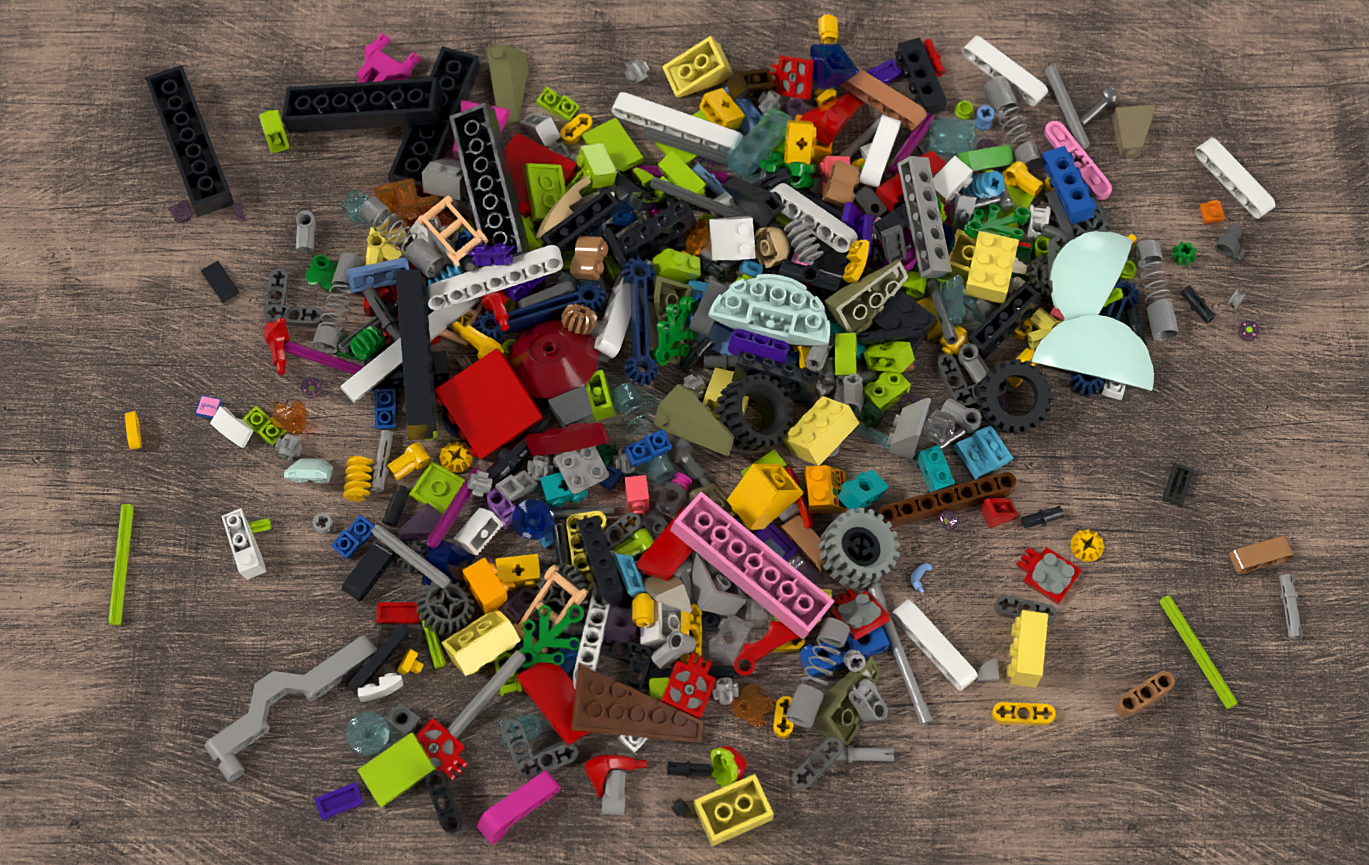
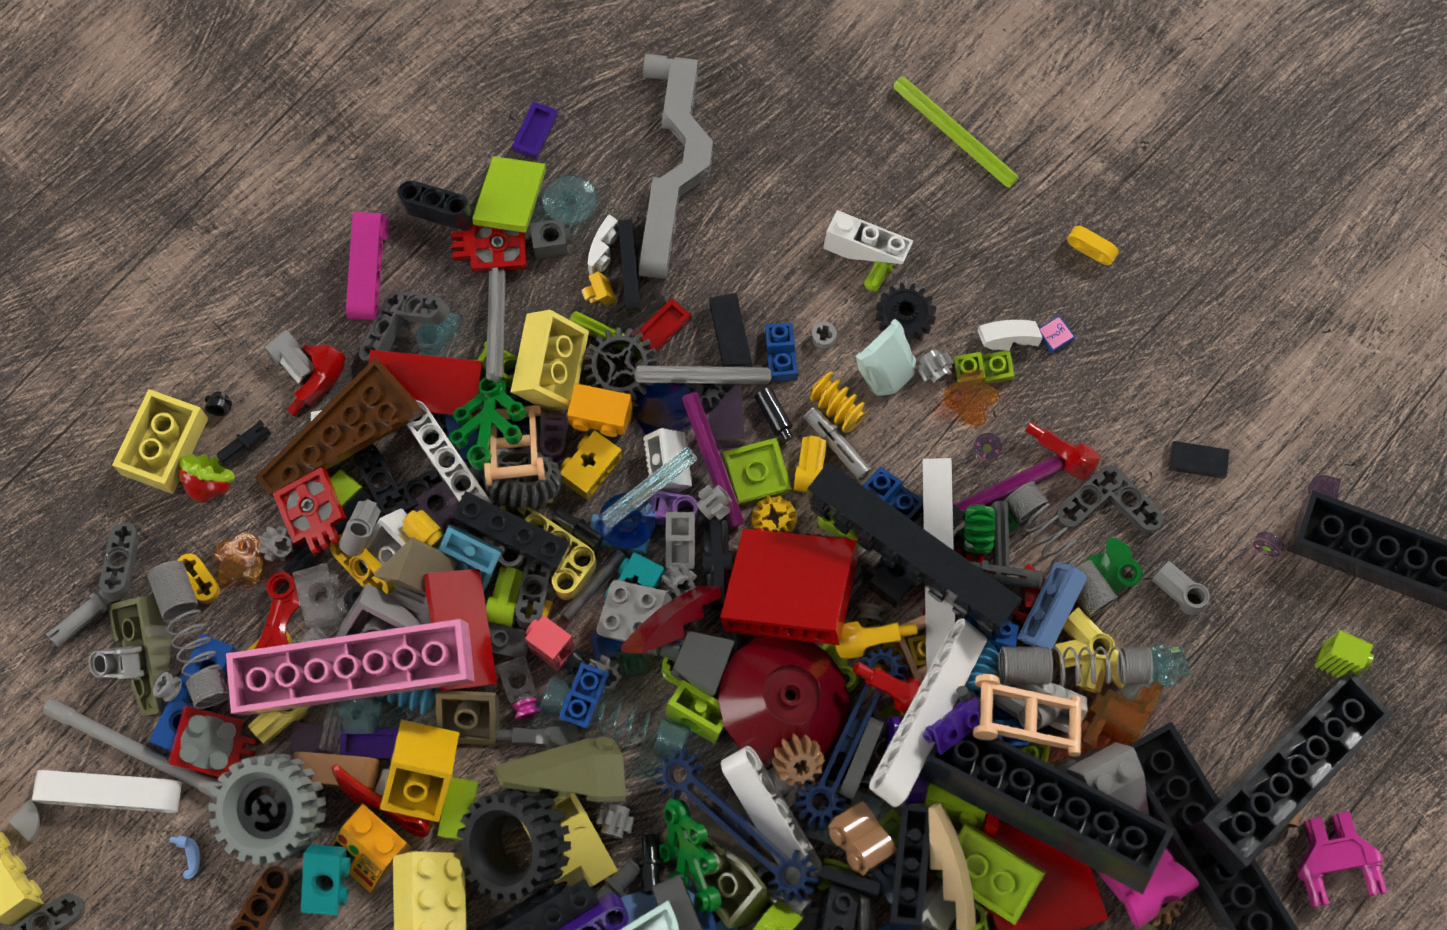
camera: 135 degrees right, 5 degrees up
(264, 481) = (910, 301): none -> black gear
(505, 517) = (648, 487): none -> clear light blue axle

